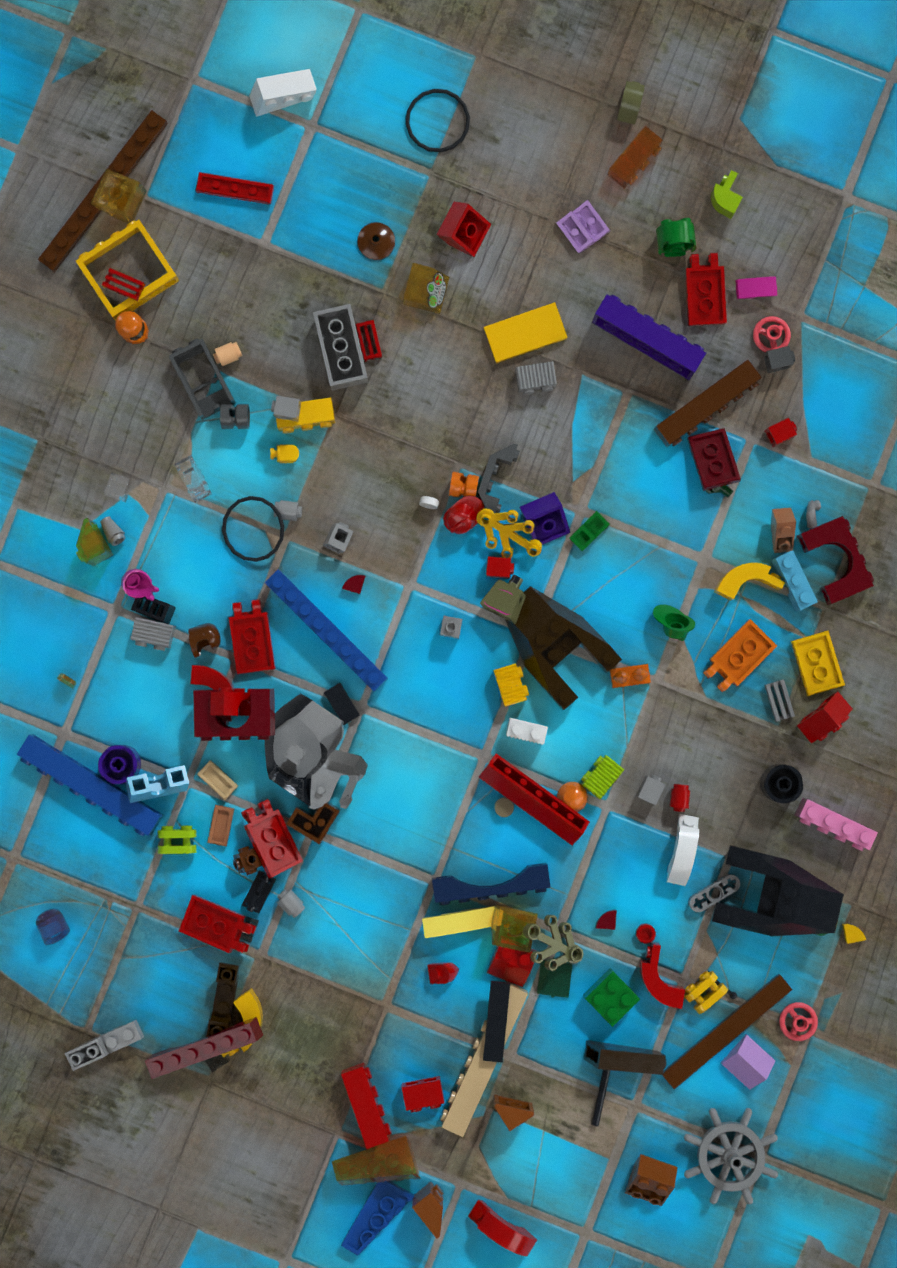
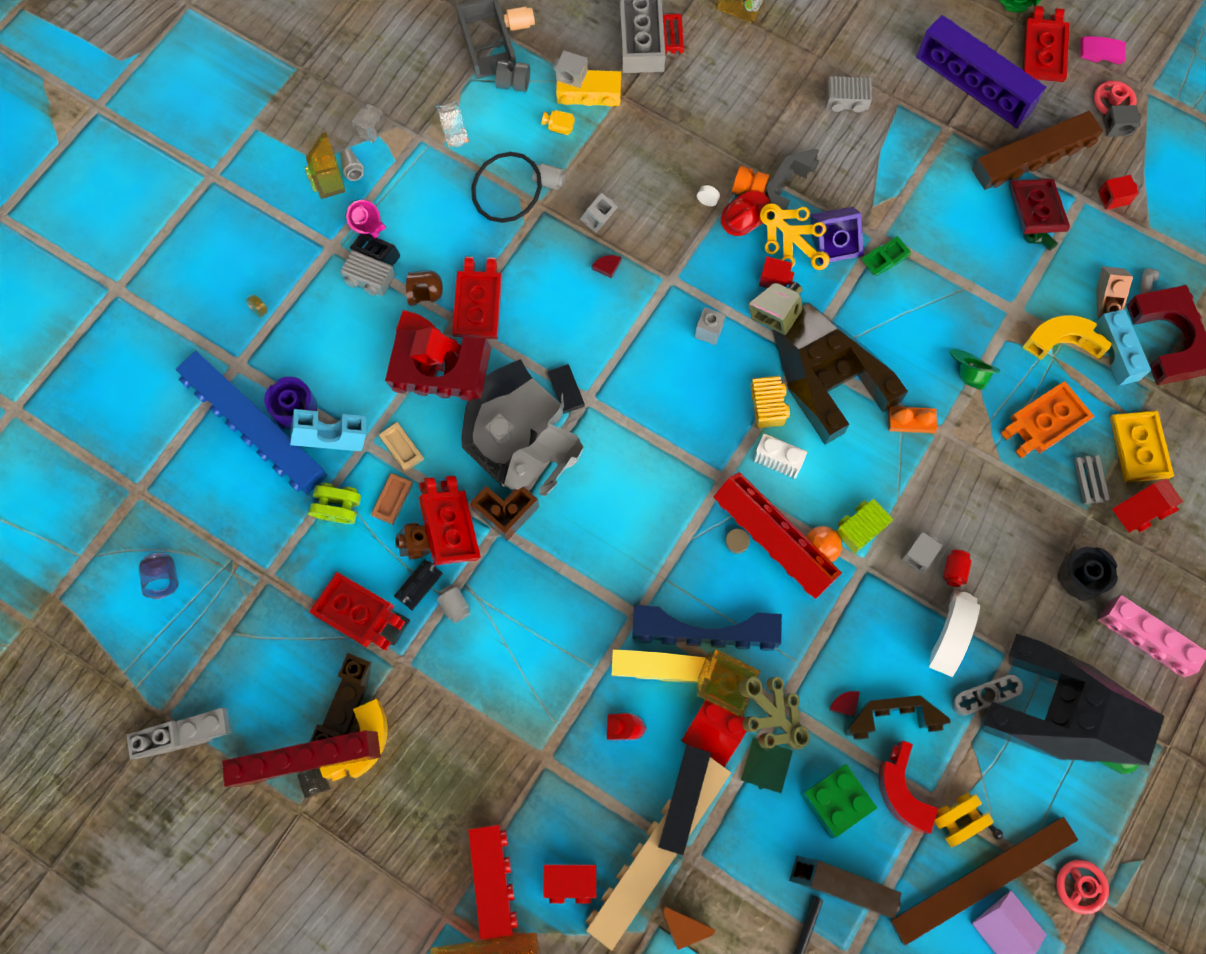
camera: 15 degrees right, 15 degrees down
(325, 630) = (566, 305): blue brick -> none
(525, 332) = (843, 53): yellow tile -> none
(621, 935) = (927, 715): none -> dark brown slope
(645, 933) = (892, 730): red tile -> none
(853, 934) = (1164, 782): yellow tile -> none

